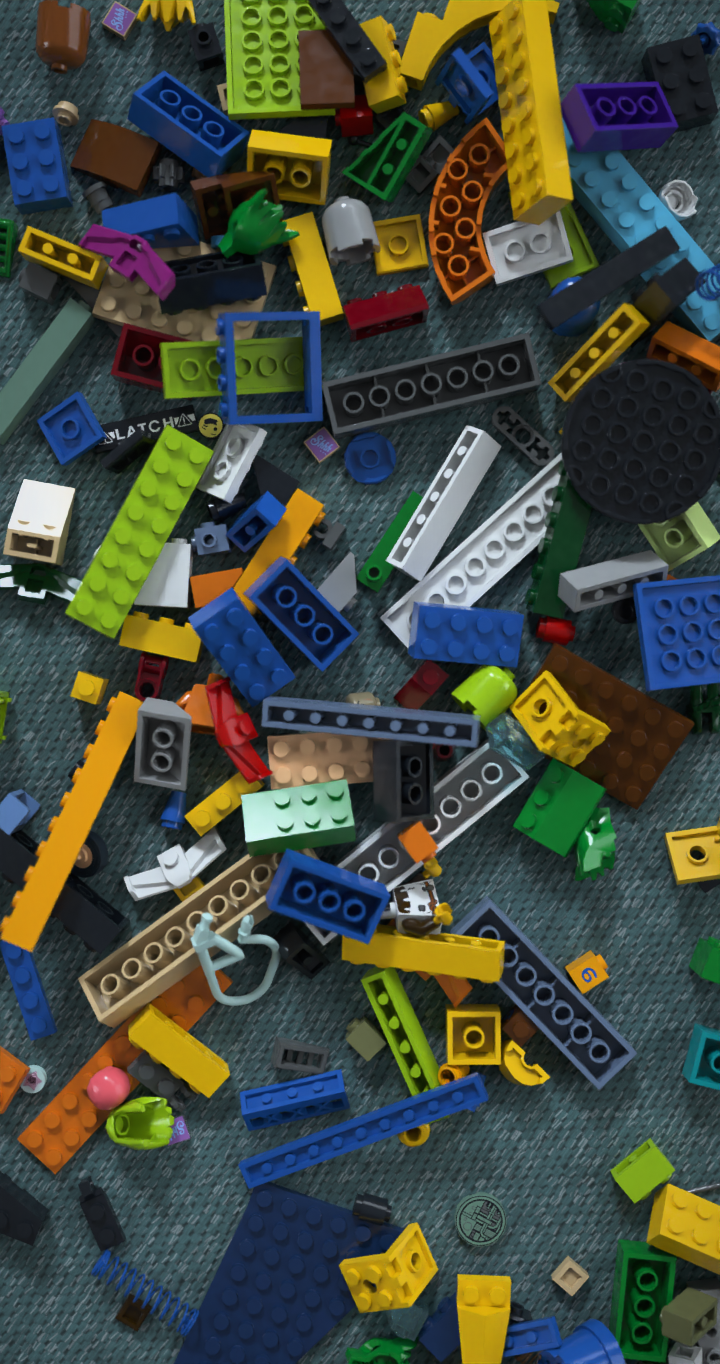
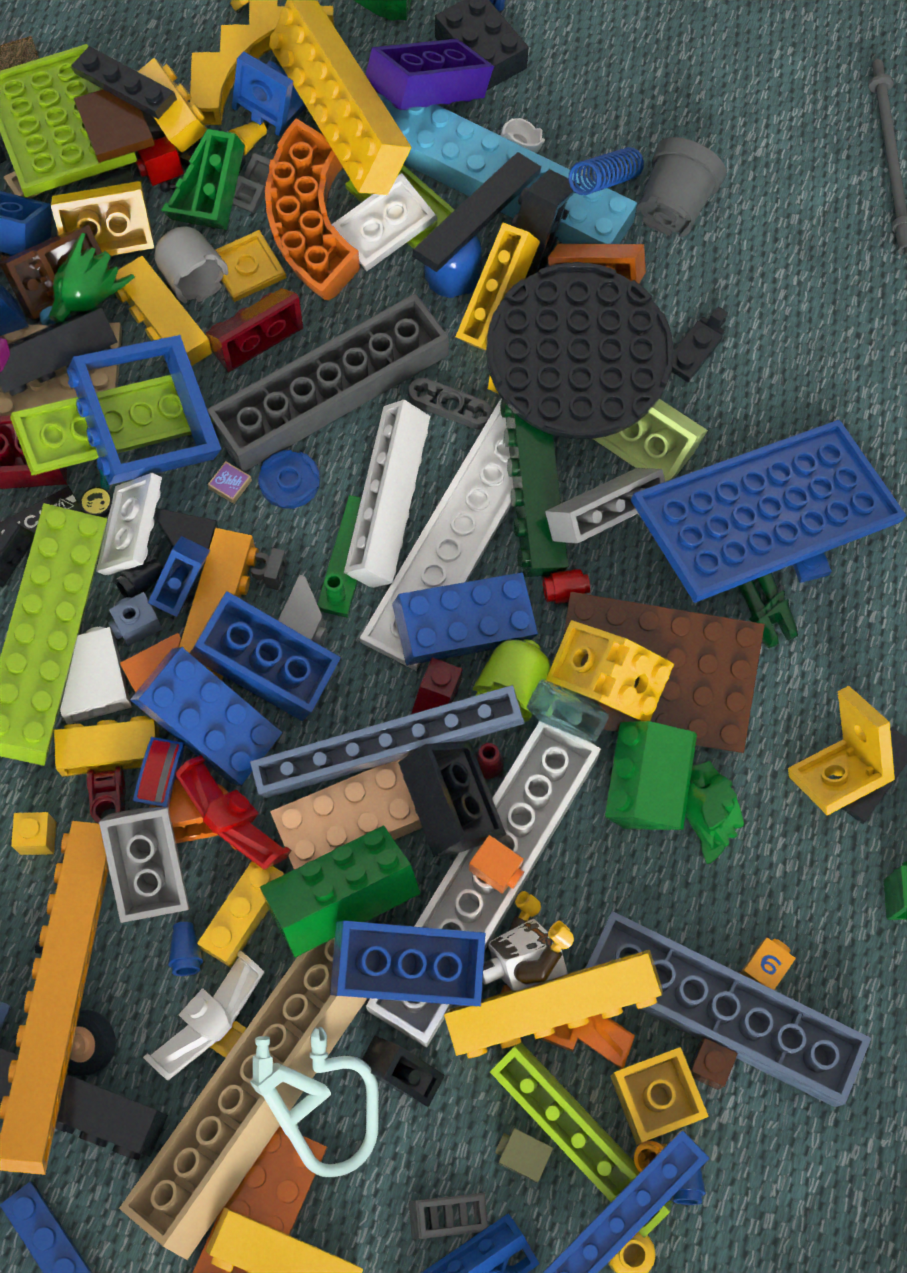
camera: 20 degrees left, 20 degrees down
(193, 679) = (158, 772): none -> slope
(516, 1069) = (732, 1122): yellow cylinder -> none
(624, 611) = (636, 543): black tile -> none

